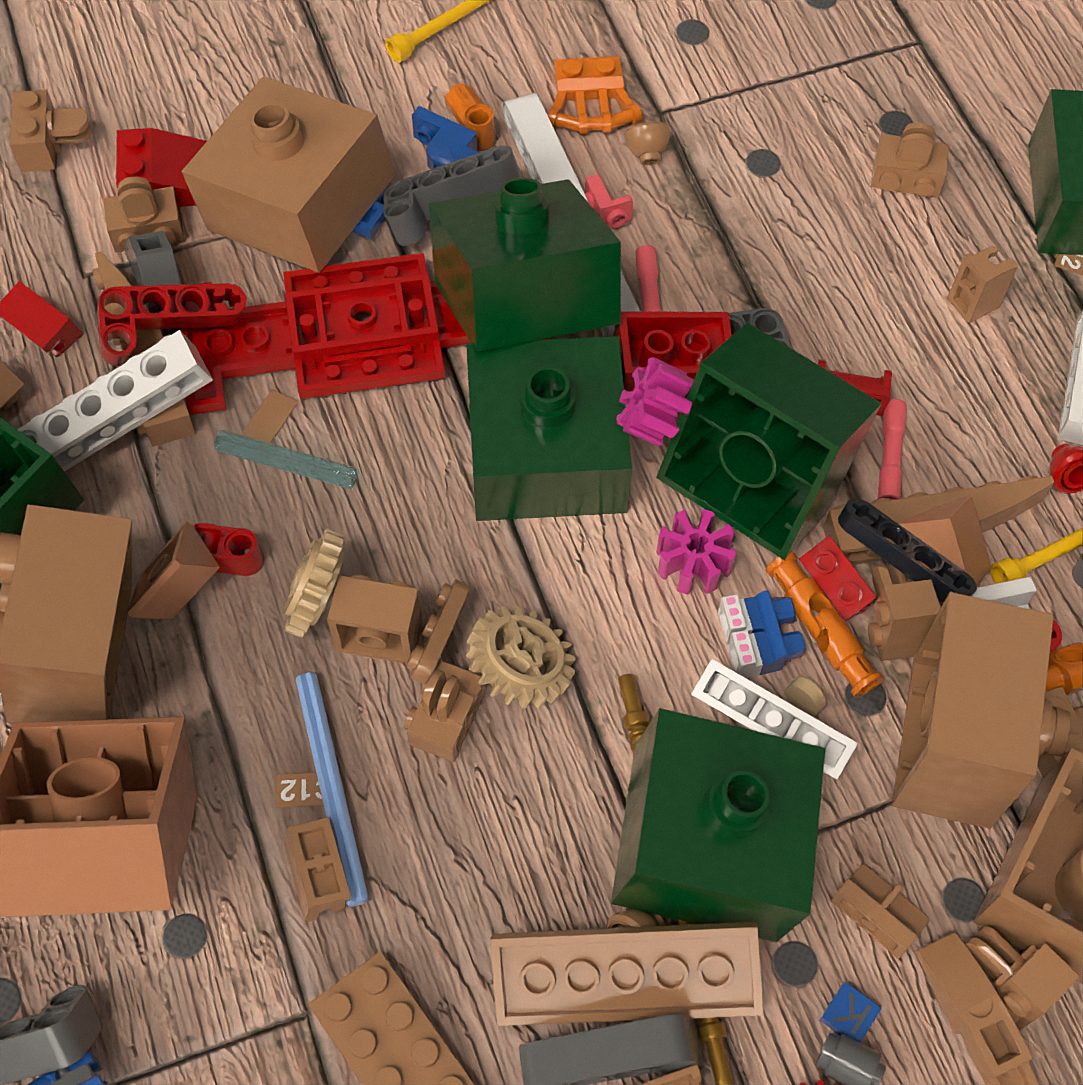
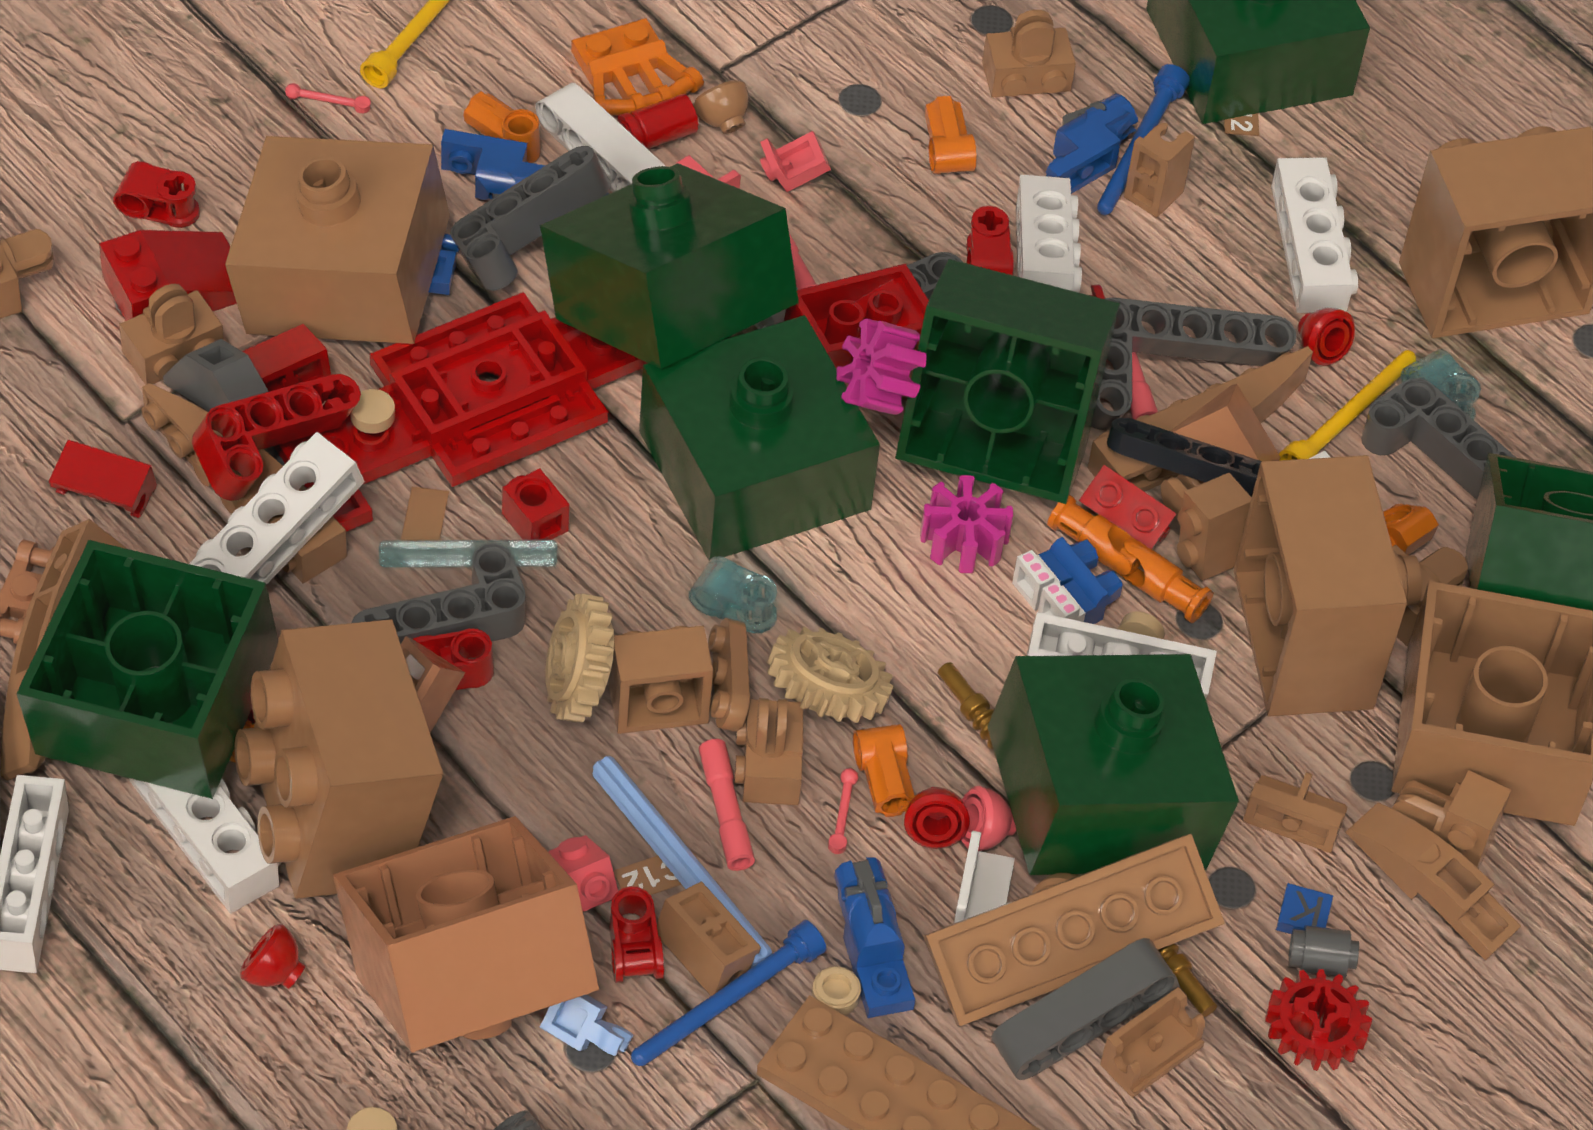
camera: 25 degrees left, 10 degrees down
(180, 504) = (490, 604): none -> dark grey beam
(184, 921) = (581, 1022): none -> light blue plate
(189, 105) = (154, 192): none -> red piece
(213, 261) = (290, 358): none -> red hinge
(244, 771) = (588, 868): none -> coral bracket
(256, 856) = (635, 943): none -> red piece
(259, 320) = (373, 412): none -> tan tile
(353, 449) = (535, 507): none -> red brick
(377, 71) = (361, 103): none -> coral hinge
(386, 771) = (732, 829): none -> coral piece
(392, 900) = (801, 945): none -> blue piece
(407, 952) = (837, 989): none -> tan tile
(455, 917) = (873, 938): none -> blue plate
(469, 808) = (837, 842): none -> coral hinge
(477, 560) = (732, 591): none -> clear light blue piece
(536, 745) = (884, 759): none -> orange piece
(558, 815) = (936, 818): none -> red brick
(570, 896) = (984, 881): none -> white panel
(591, 142) = (661, 121): none -> red piece
(598, 832) = (988, 815): none -> coral brick
(684, 201) = (795, 161): none -> coral bracket
(813, 314) = (990, 240): none -> red piece
(818, 216) = (949, 144): none -> orange piece
(859, 322) = (1048, 232): none -> white brick
(931, 247) = (1091, 140): none -> blue plate
(934, 437) = (1172, 340): none -> dark grey beam
(1020, 214) = (1168, 87): none -> blue piece

